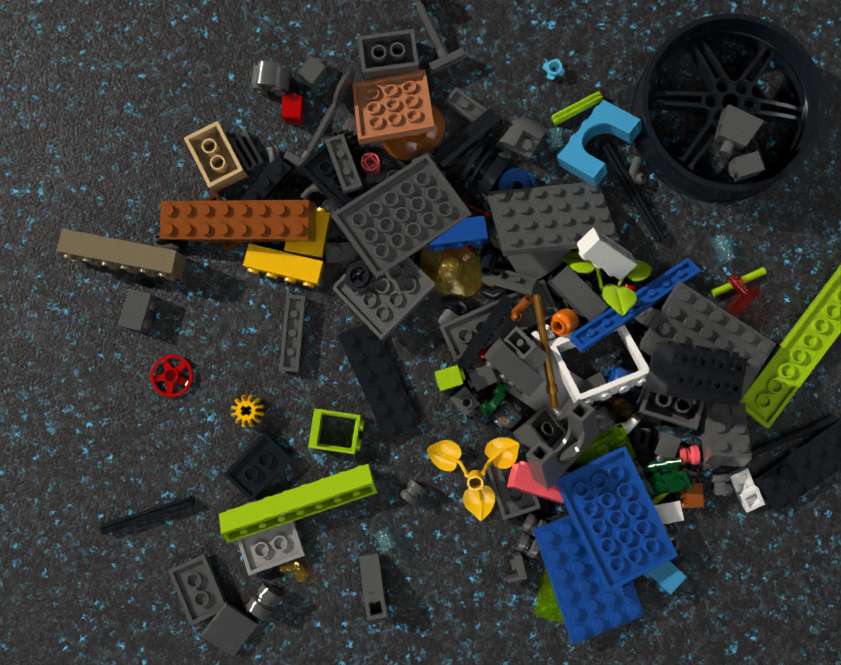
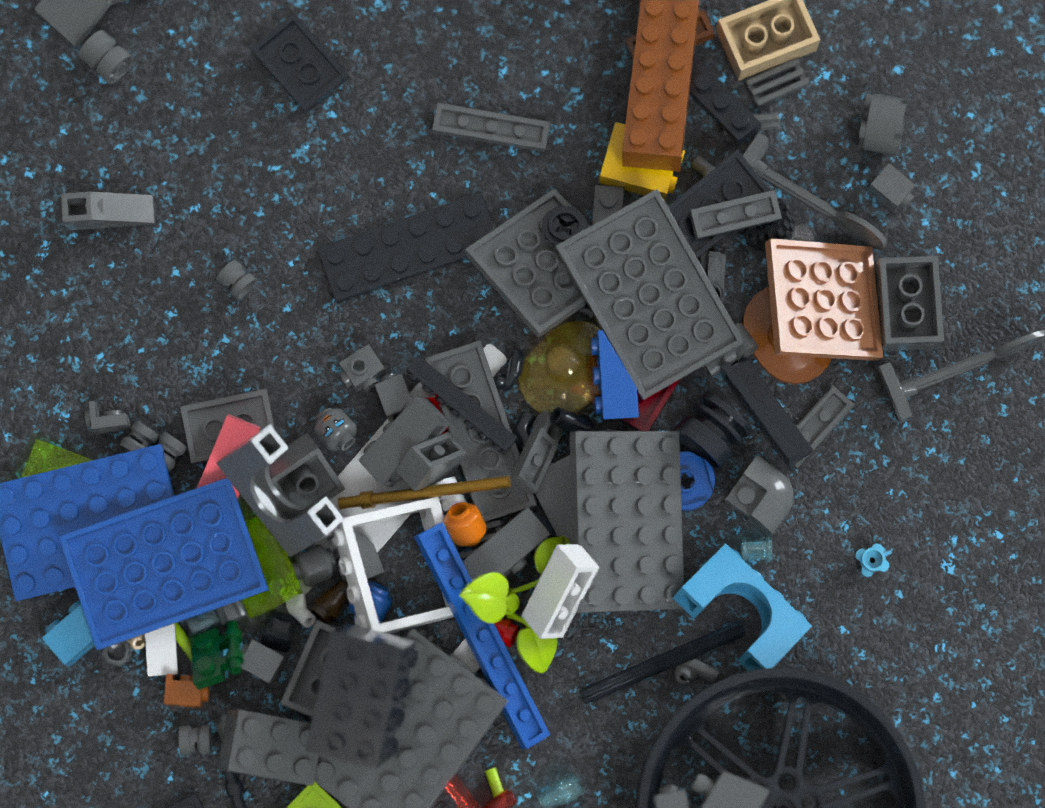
camera: 90 degrees right, 5 degrees down
(247, 418) = (382, 43): yellow gear -> none
(271, 548) = (183, 72): light grey plate -> none
(284, 265) = (594, 123): yellow brick -> none
(292, 108) = (837, 154): red brick -> none
(296, 569) = (146, 105): clear yellow arm -> none
(297, 503) = (240, 114): lime brick -> none
(316, 431) = (344, 149): lime window -> none
(372, 166) = (738, 268): coral wheel -> none
(384, 539) = (172, 233): clear light blue bush -> none
(449, 378) = (397, 344): lime brick -> none
(477, 498) = (214, 374): yellow plant -> none
(499, 394) = (363, 413): dark green plate -> none
(520, 308) = (492, 460): dark orange arm -> none
(577, 108) = (806, 590): lime axle -> none
(689, 454) = (244, 694): coral wheel -> none
(745, 489) = (182, 780): white slope -> none

